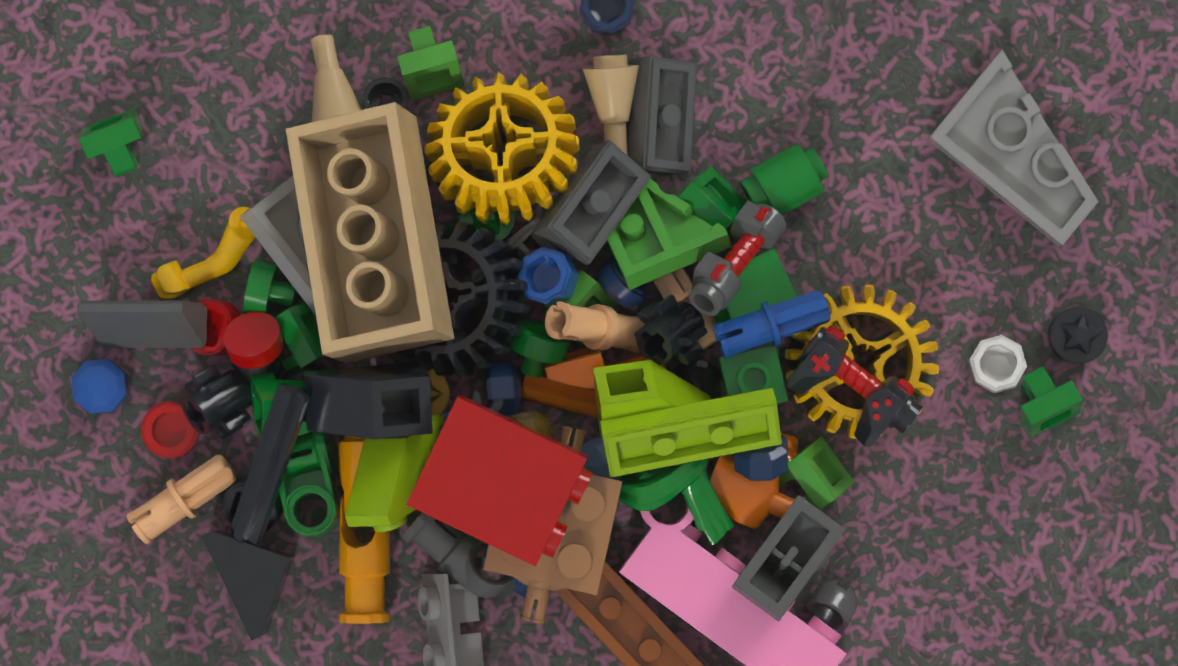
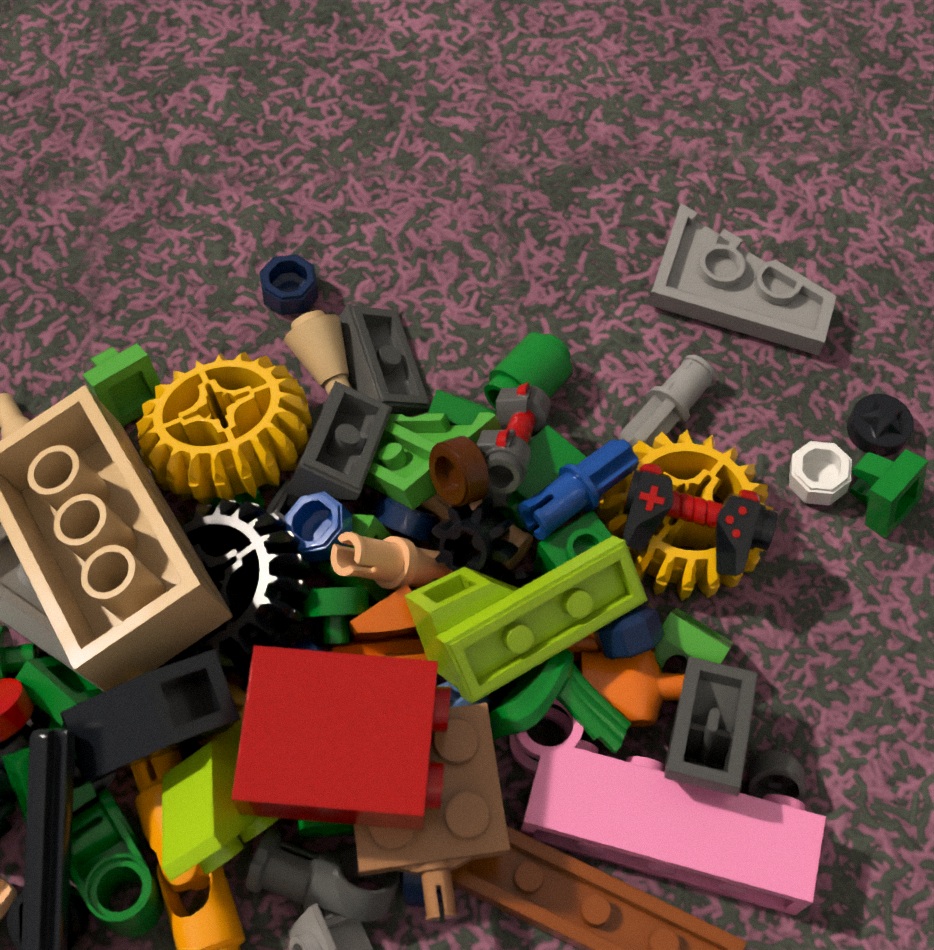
camera: 25 degrees left, 25 degrees down
(673, 282) = (458, 471): none -> reddish brown tile
(895, 252) = (670, 403): none -> light grey axle

